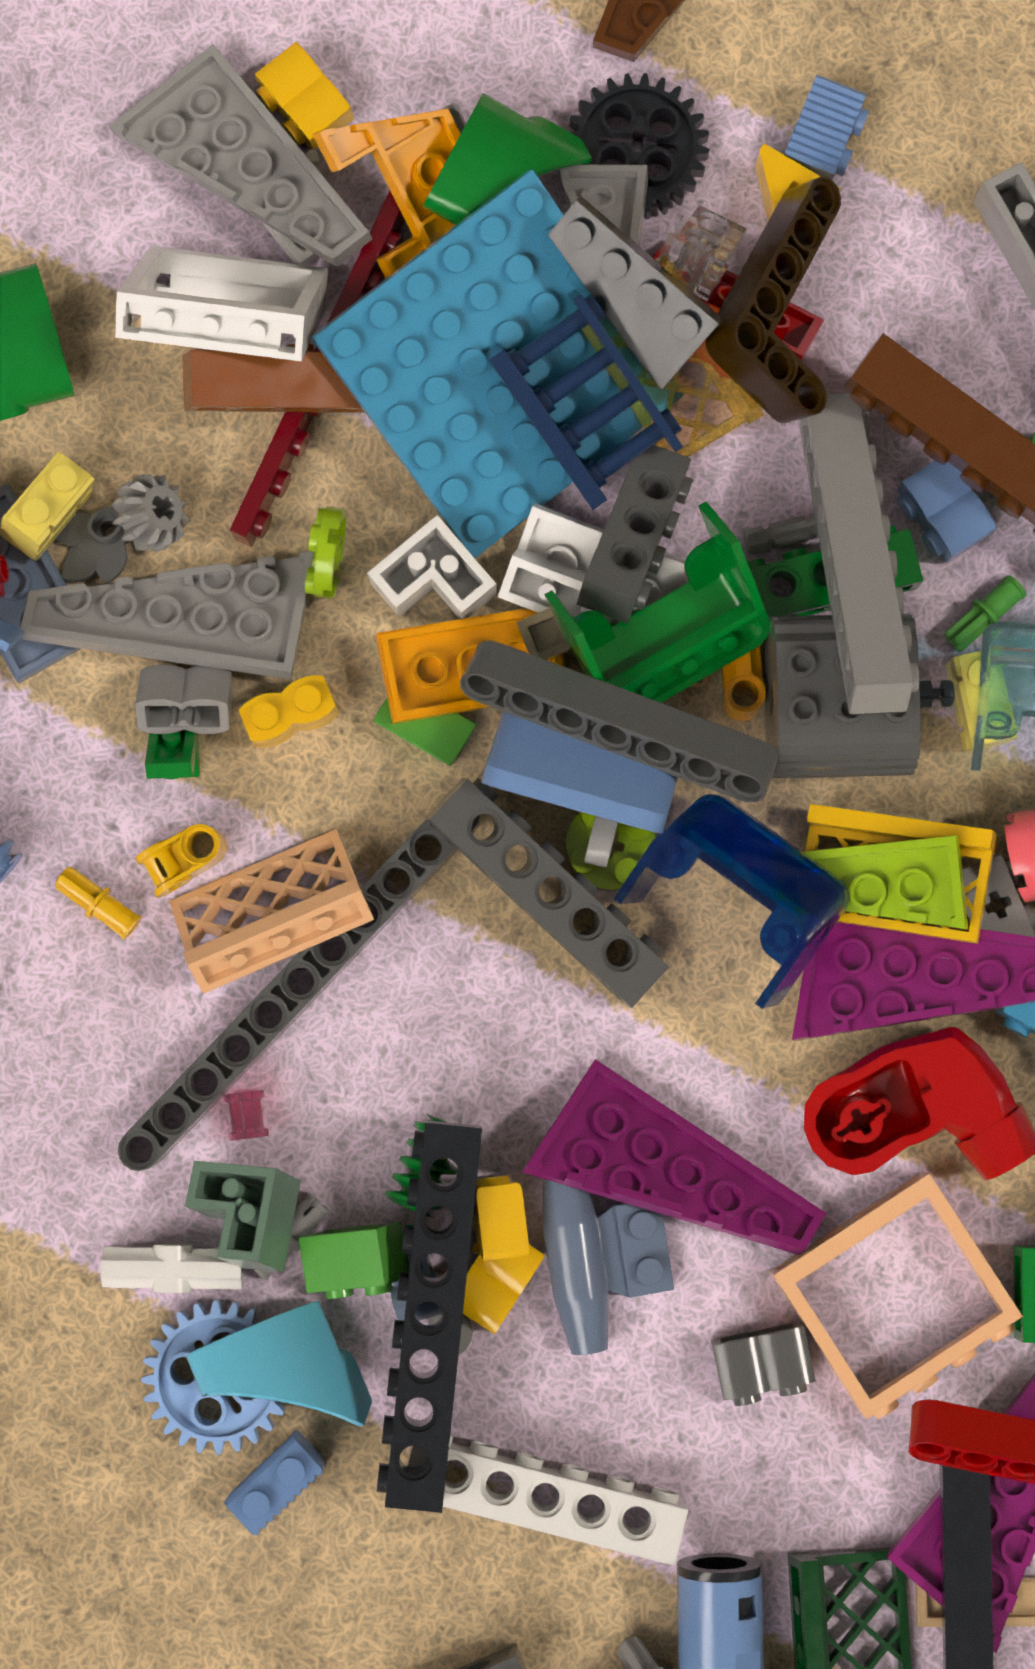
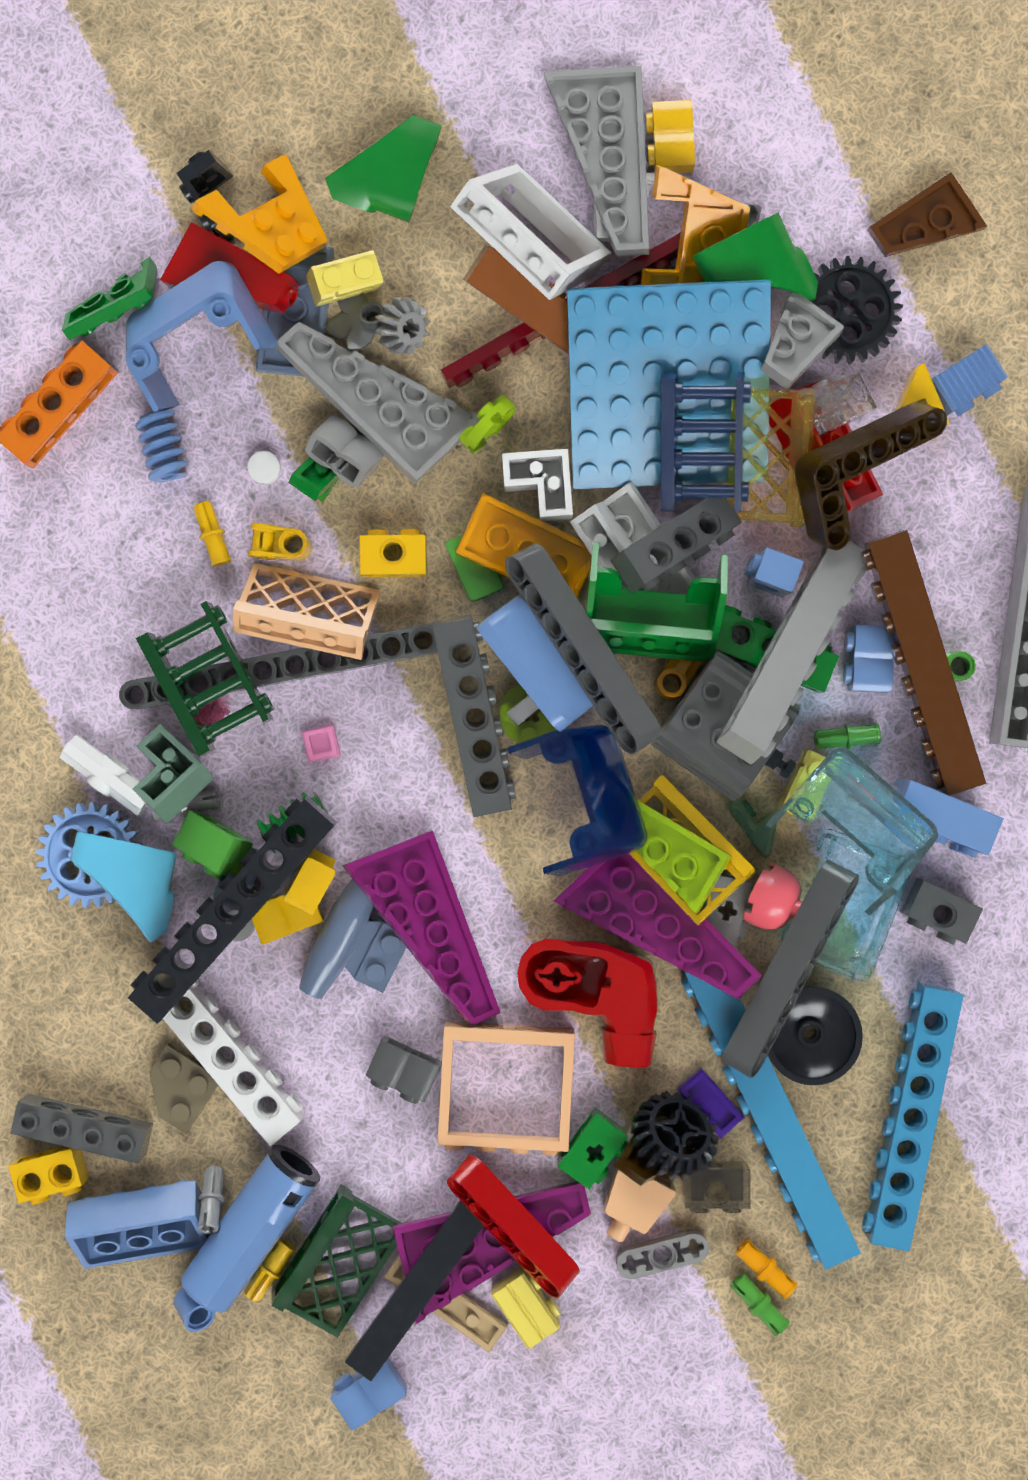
camera: 40 degrees right, 5 degrees up
(104, 784) = (264, 467): none -> white tile
(214, 1114) = (172, 677): none -> dark green fence
(275, 1483) = (80, 938): medium blue brick -> none
(278, 716) = (391, 501): yellow brick -> none
(311, 801) = (411, 564): none -> yellow brick
(394, 1052) = (321, 743): none -> bright pink tile
(519, 1575) = (180, 1087): none -> dark tan plate
(543, 635) = (578, 564): dark tan plate -> none
(637, 294) = (778, 404): wing -> none
(768, 488) = (773, 572): none -> medium blue brick
(781, 534) = (762, 603): light grey axle -> none
(967, 792) = (756, 831): none -> clear green slope

